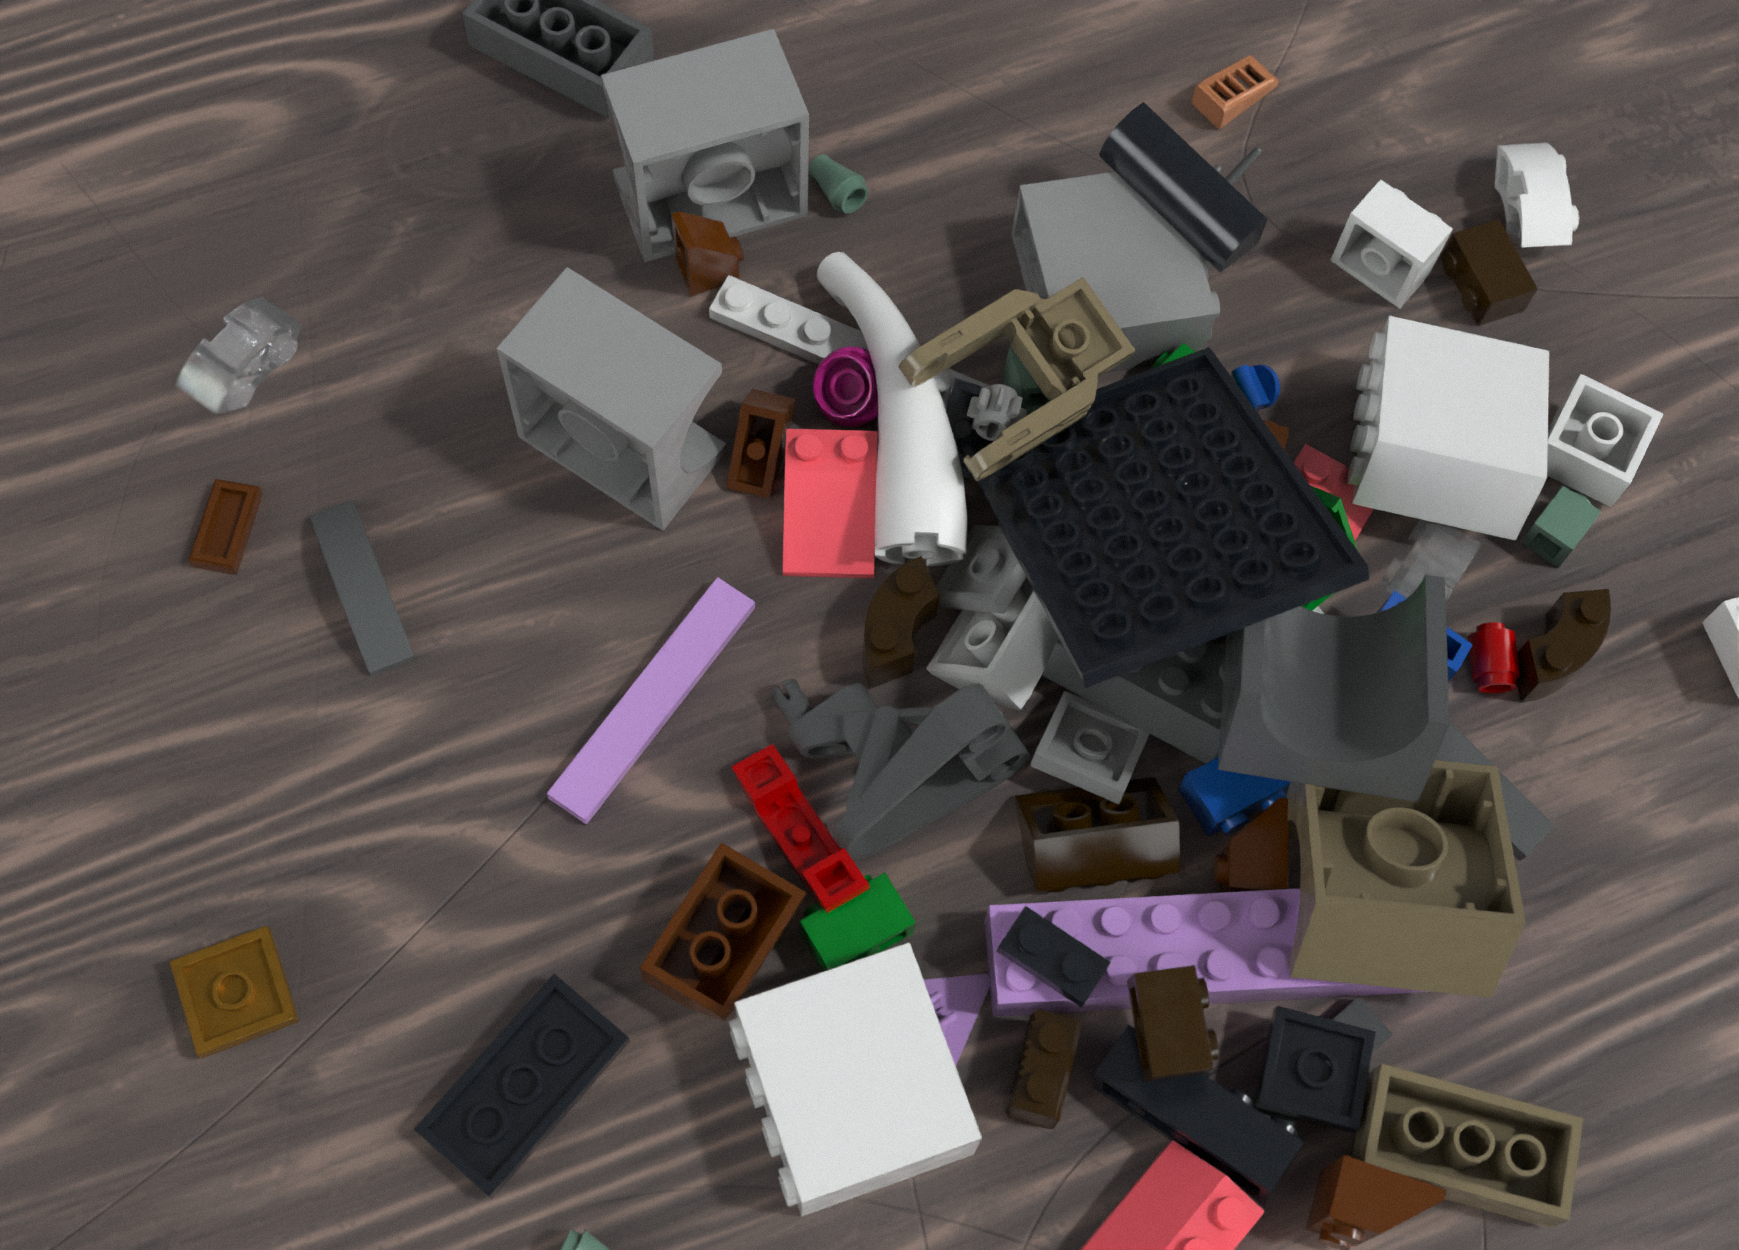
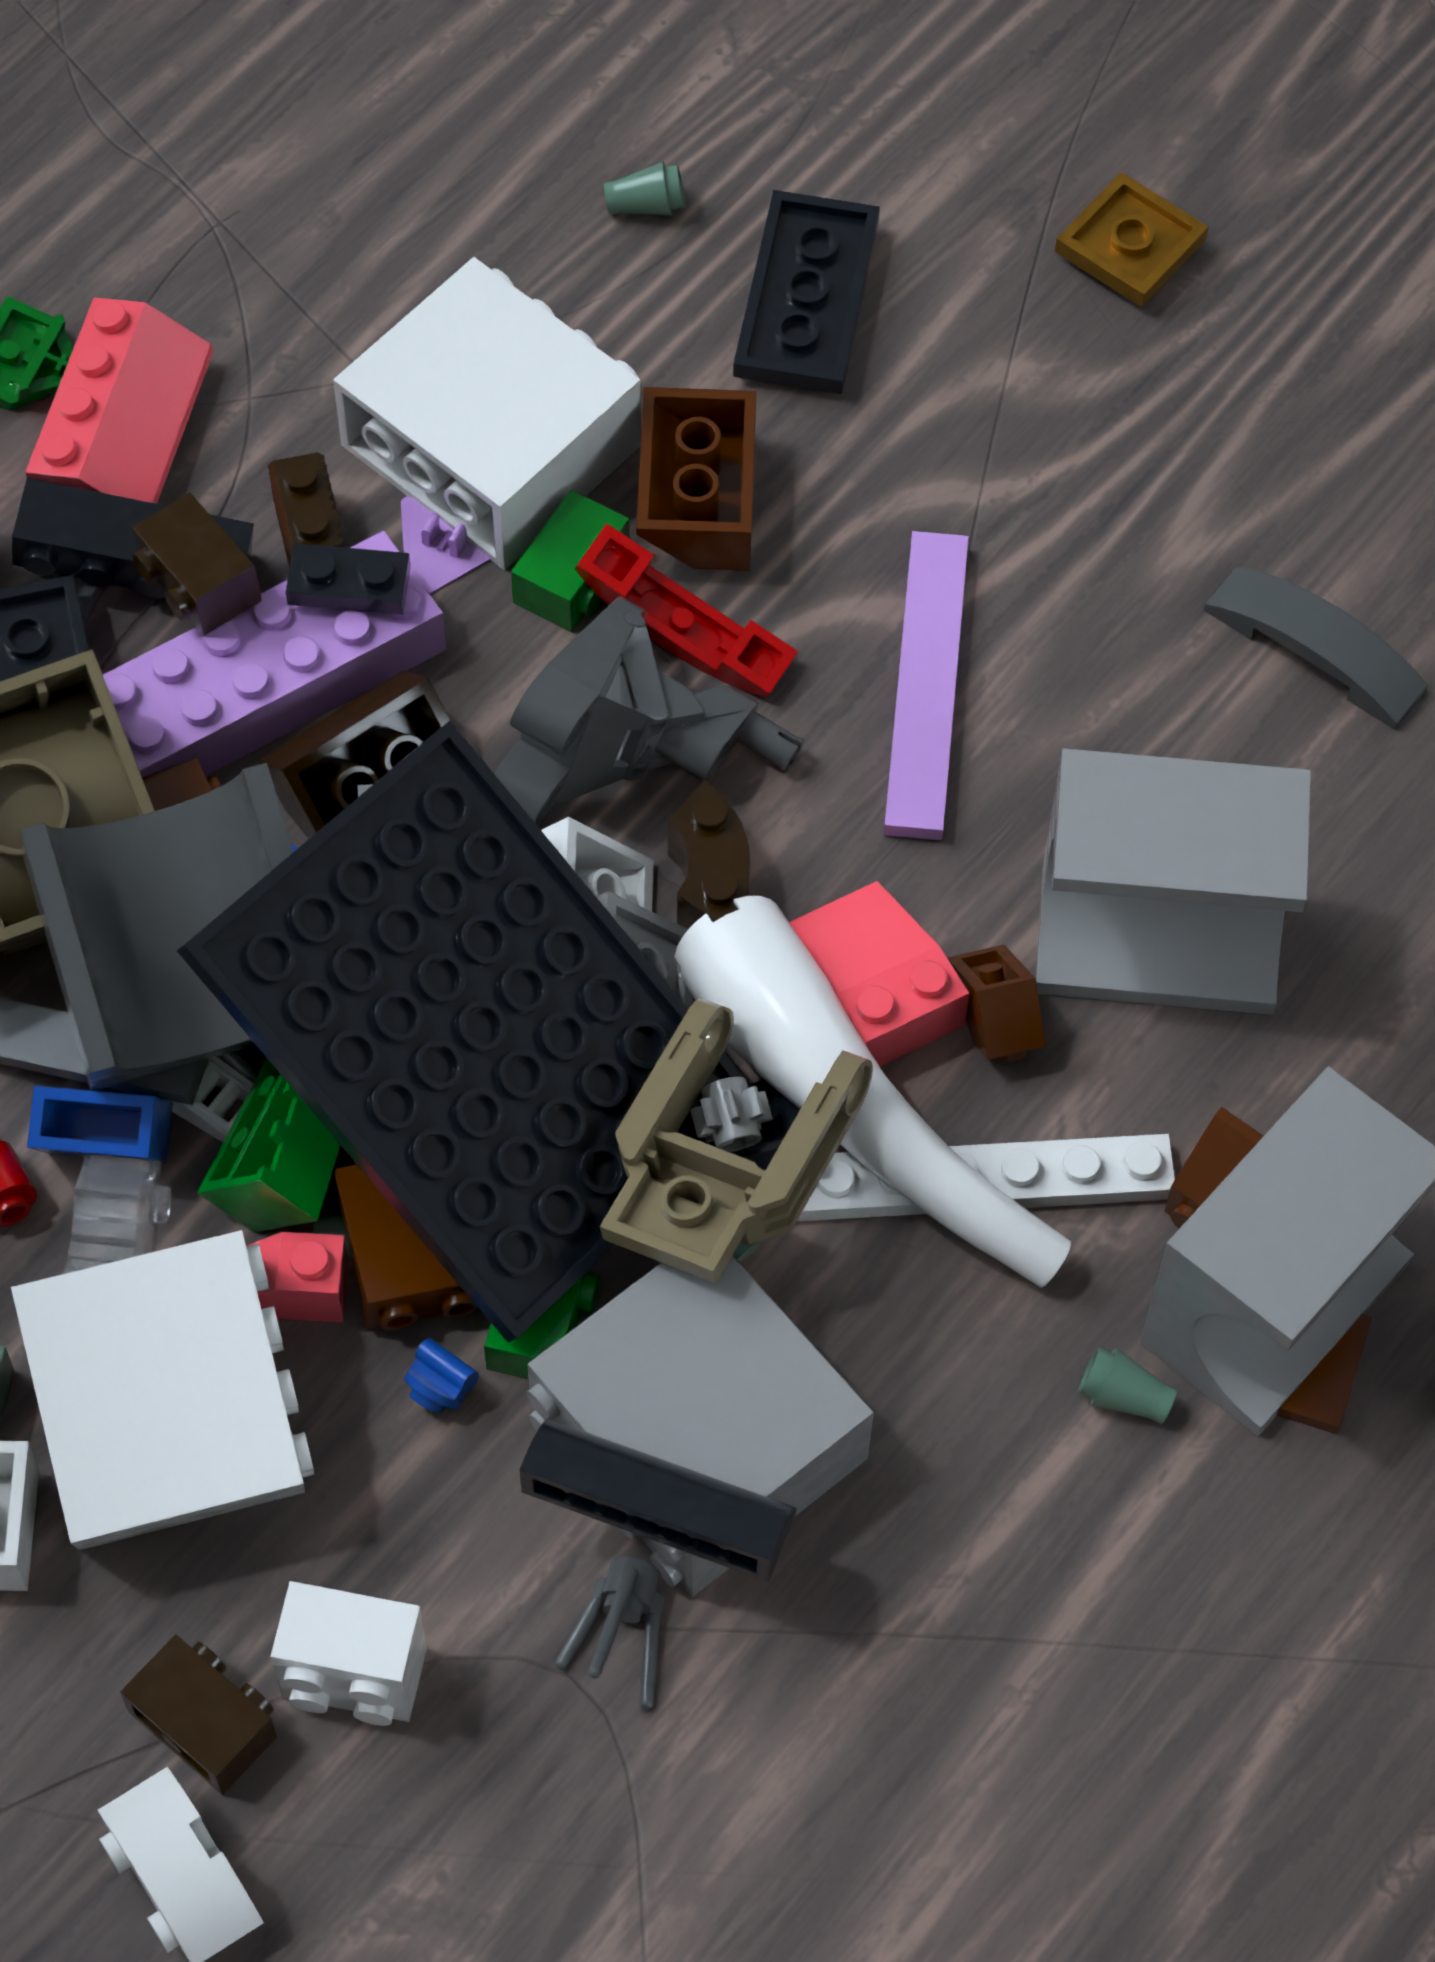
camera: 155 degrees right, 5 degrees down
(847, 387) = (943, 1095): dark pink piece -> none
(1222, 112) = (707, 1785): nougat slope -> none

